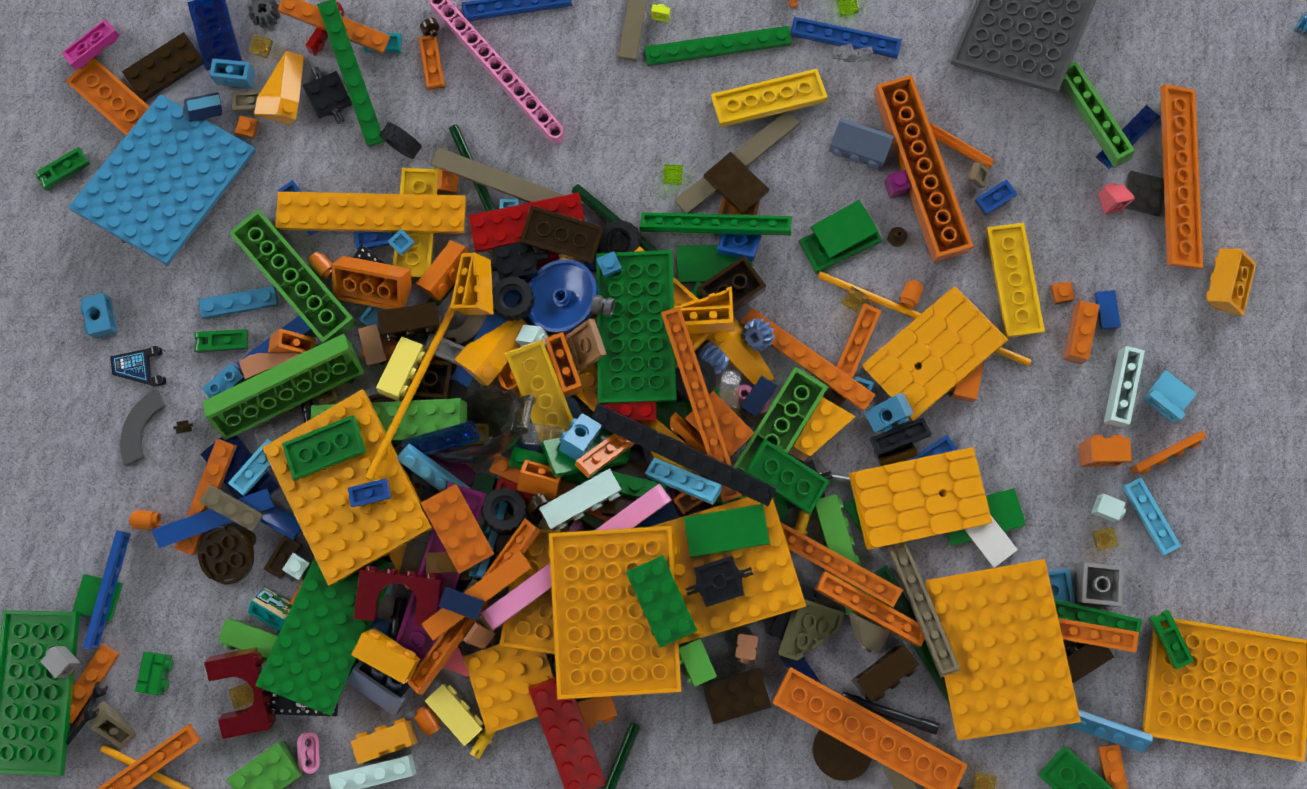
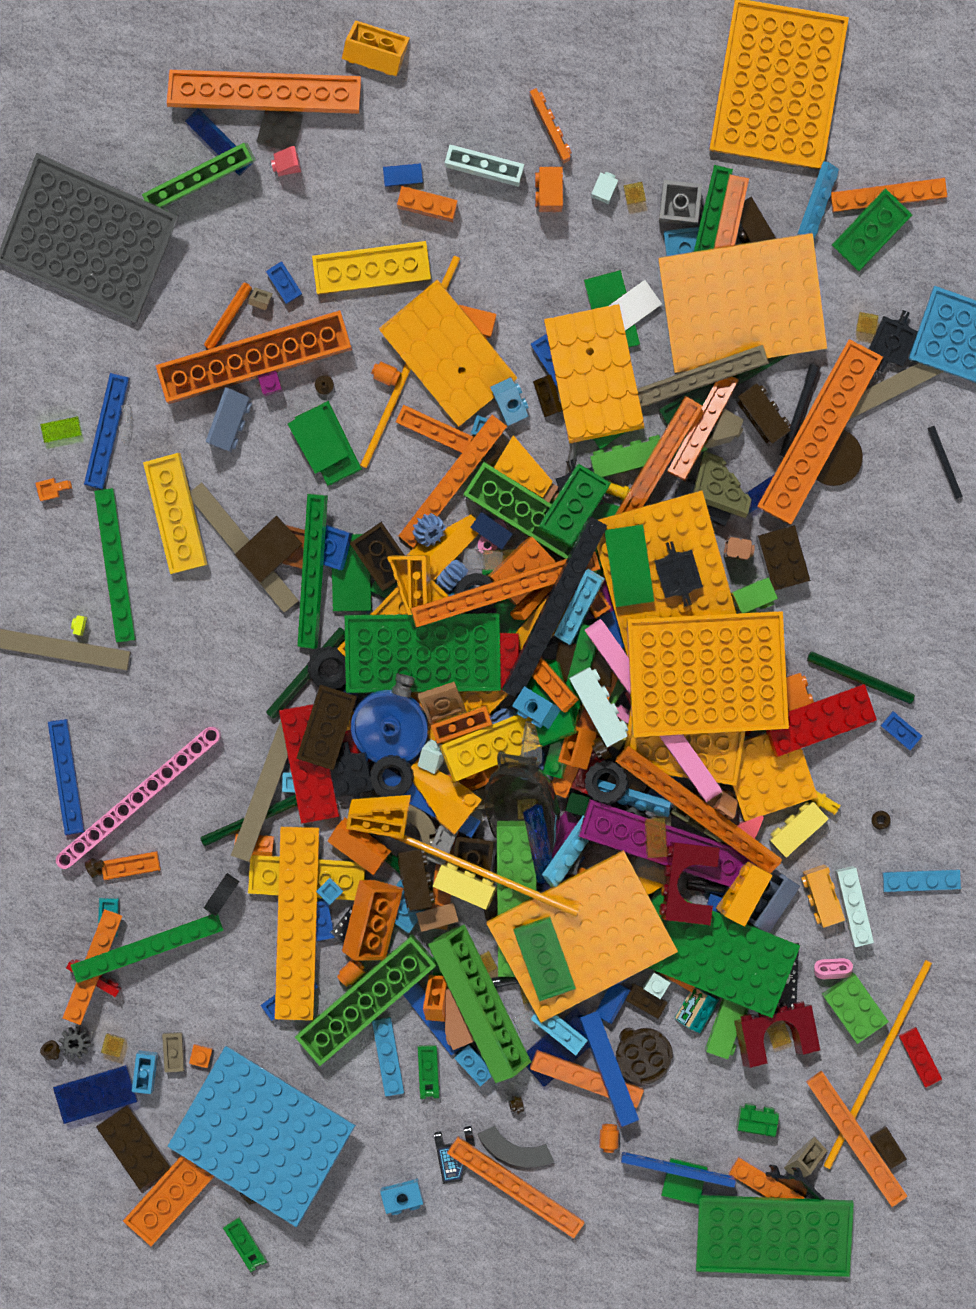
camera: 90 degrees left, 10 degrees up
(60, 661) = (747, 1208): light grey brick -> none
(90, 44) = (111, 1222): dark pink plate -> none
(100, 427) = (515, 1187): none -> orange plate
(202, 107) = (183, 1100): dark blue slope -> none
(231, 508) = (600, 1050): dark tan plate -> none
(281, 92) = (163, 1019): light orange wedge -> none
(327, 95) = (166, 973): black plate -> none
(369, 493) = (591, 912): blue plate -> none
(427, 720) = (804, 855): orange brick -> none
(457, 528) = (625, 826): orange plate -> none
(461, 603) = (698, 820): dark blue tile -> none
(484, 590) = (690, 806): orange tile -> none
(609, 264) = (359, 679): dark azure plate -> none
(661, 601) = (698, 629): green plate -> none
(673, 174) = (255, 614): clear neon green tile -> none
(854, 299) = (391, 431): clear yellow plate -> none
(900, 437) = (533, 390): black plate -> none
(1062, 292) = (384, 219): orange plate -> none
(1151, 516) = (612, 146): medium azure plate -> none
(1169, 396) = (493, 119): medium azure bracket -> none
(1171, 640) = (734, 137): green plate -> none

